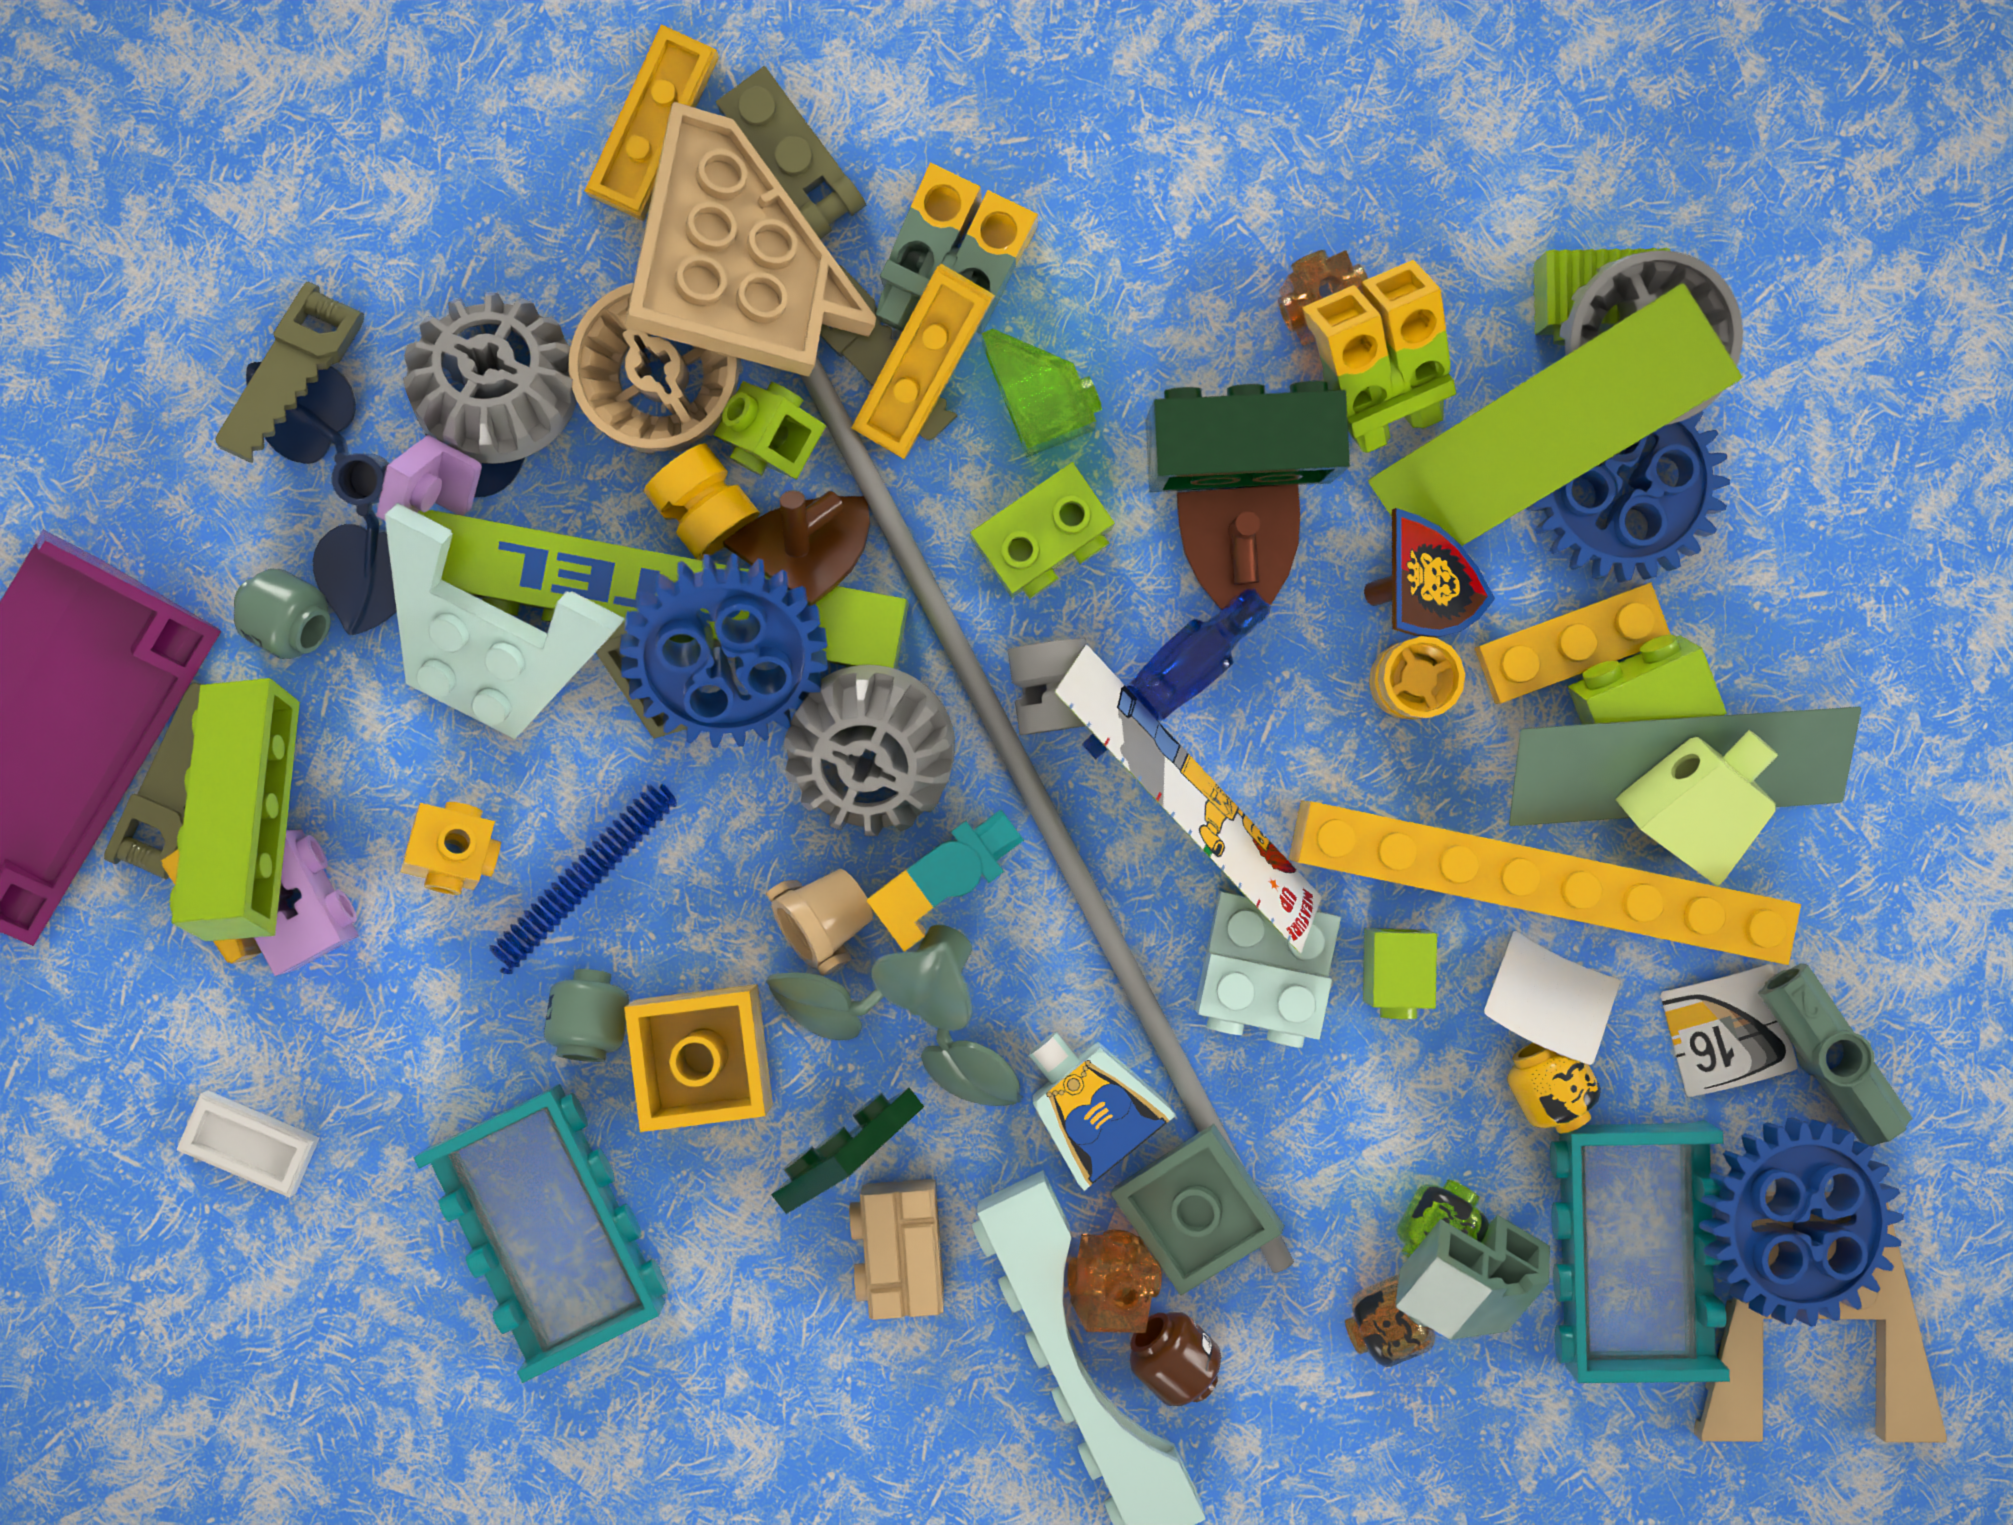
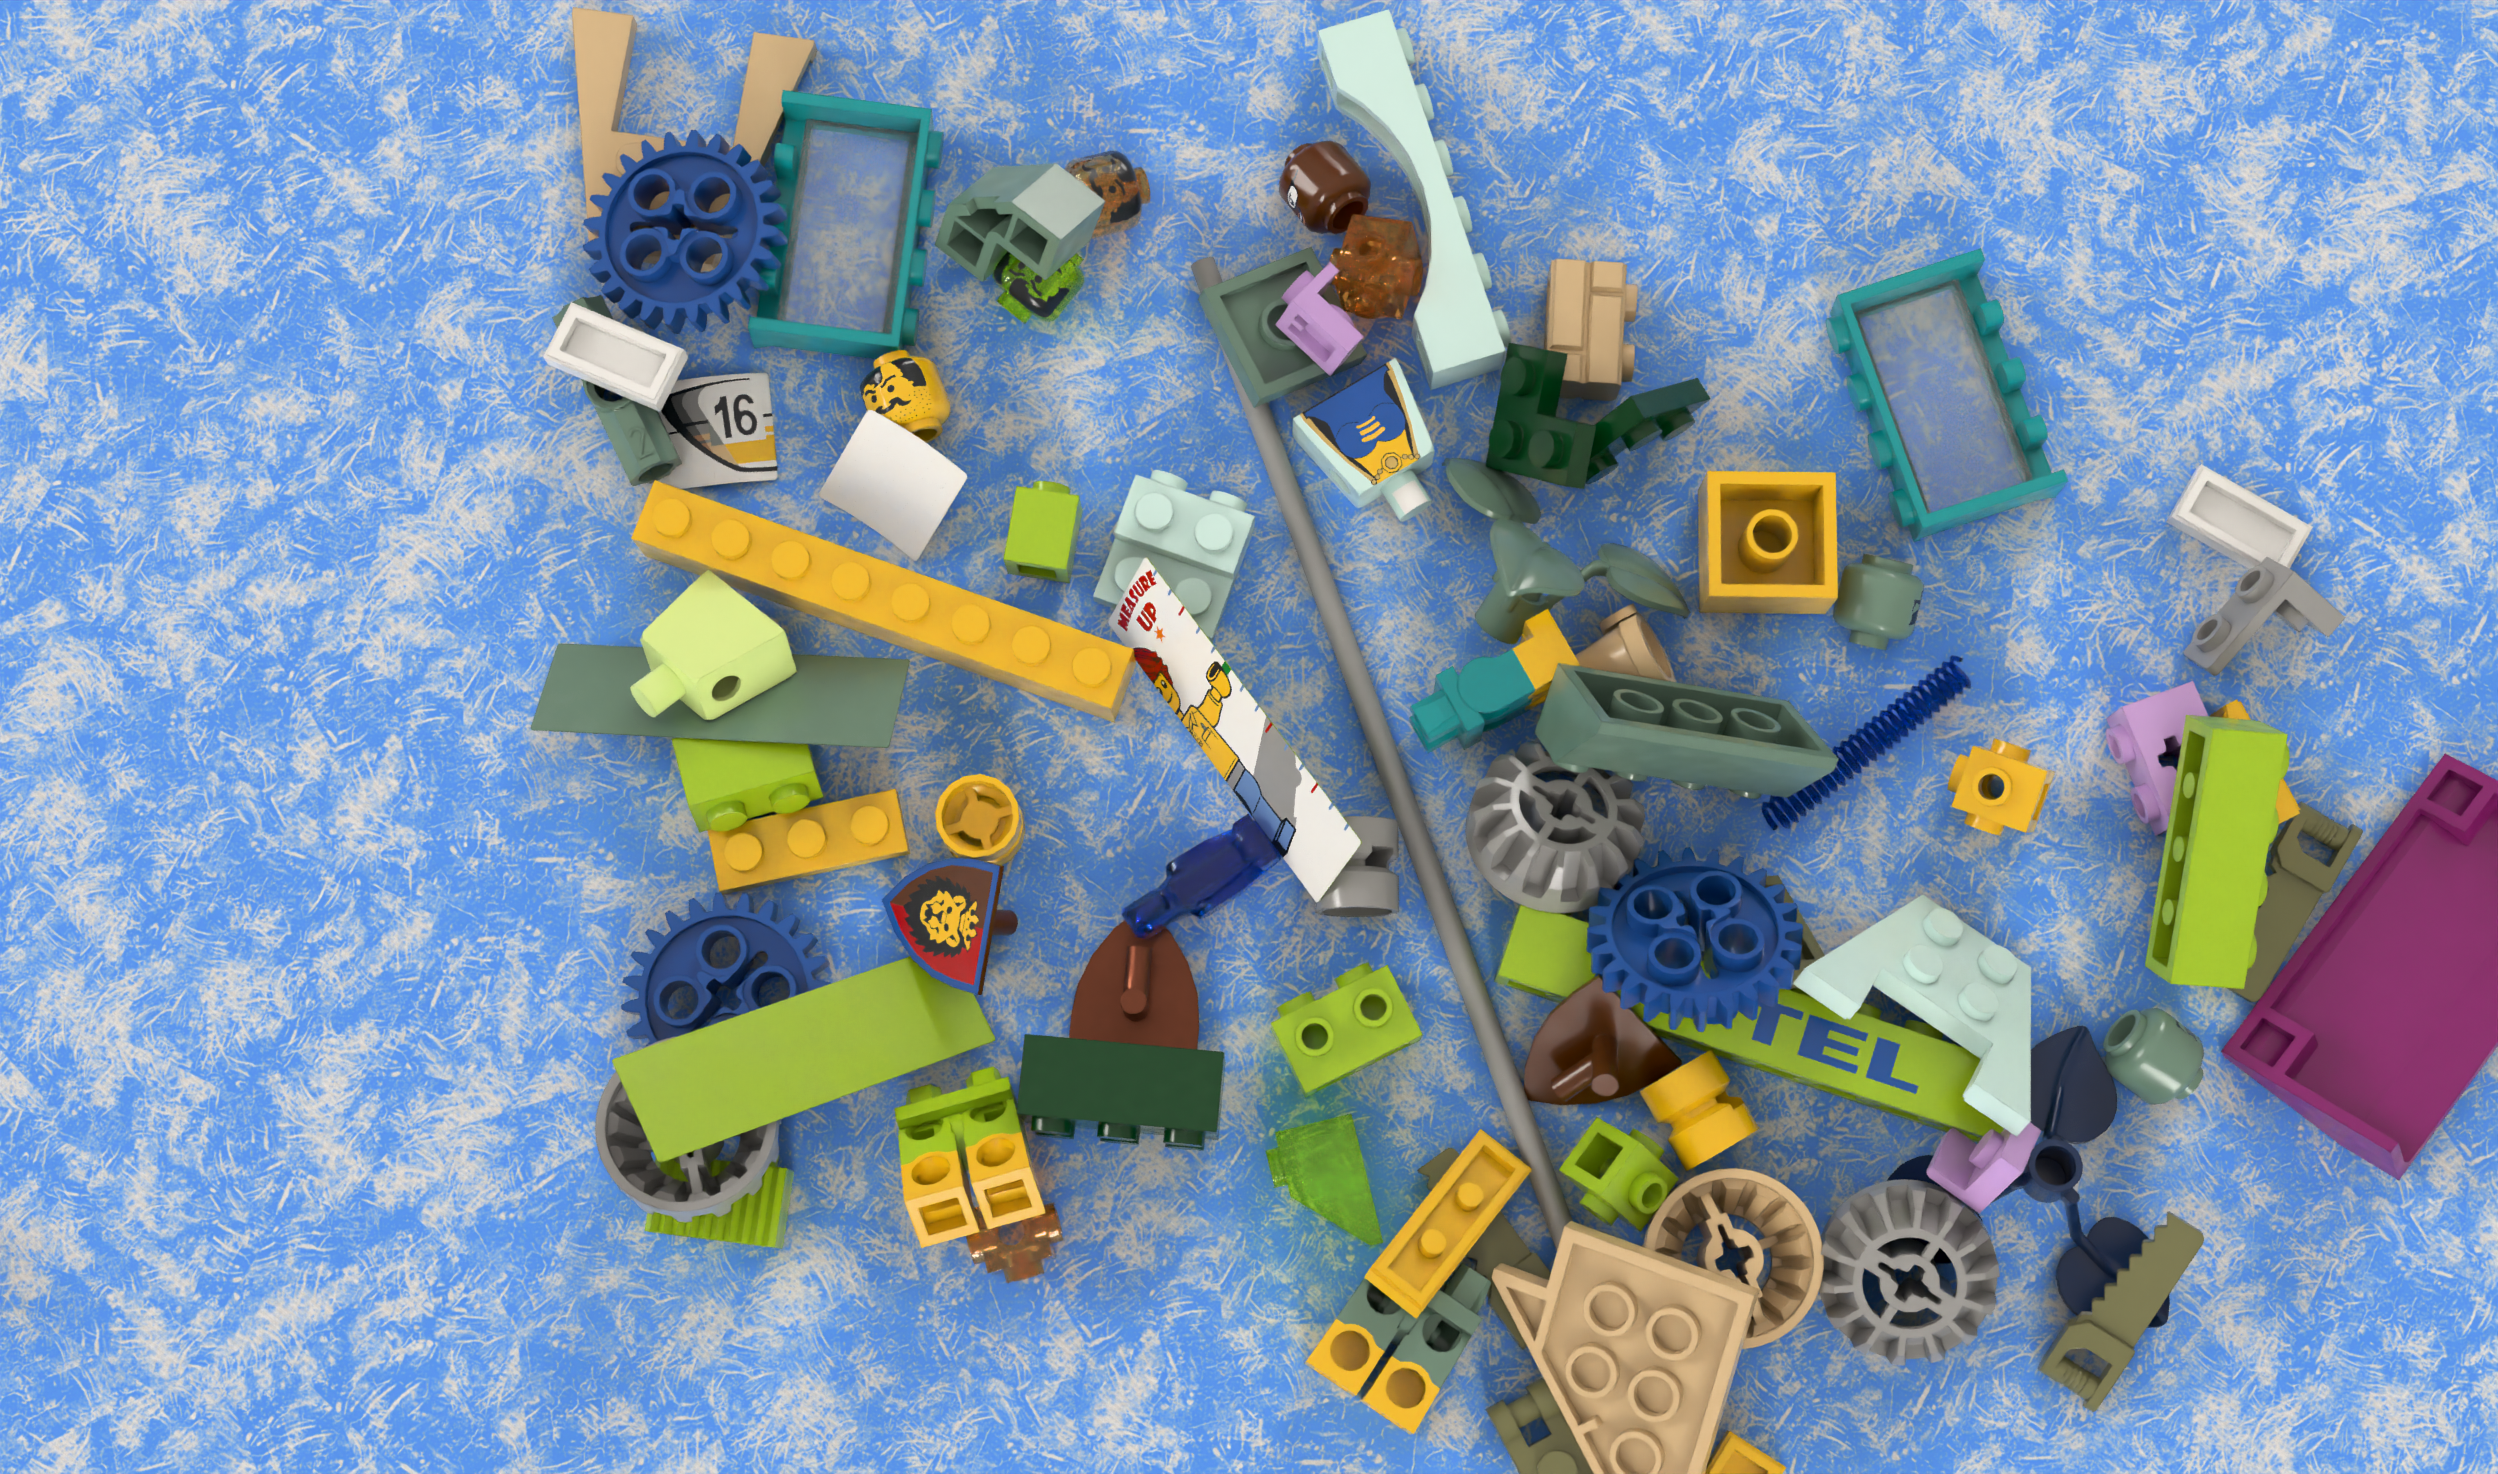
camera: 170 degrees left, 10 degrees down
(227, 1058) = (2257, 596): none -> light grey bracket
(761, 851) = (1679, 733): none -> sand green slope
(946, 1134) = (1525, 428): none -> dark green plate
(1166, 1211) = (1314, 324): none -> lavender bracket
(1848, 1083) = (615, 357): none -> white tile

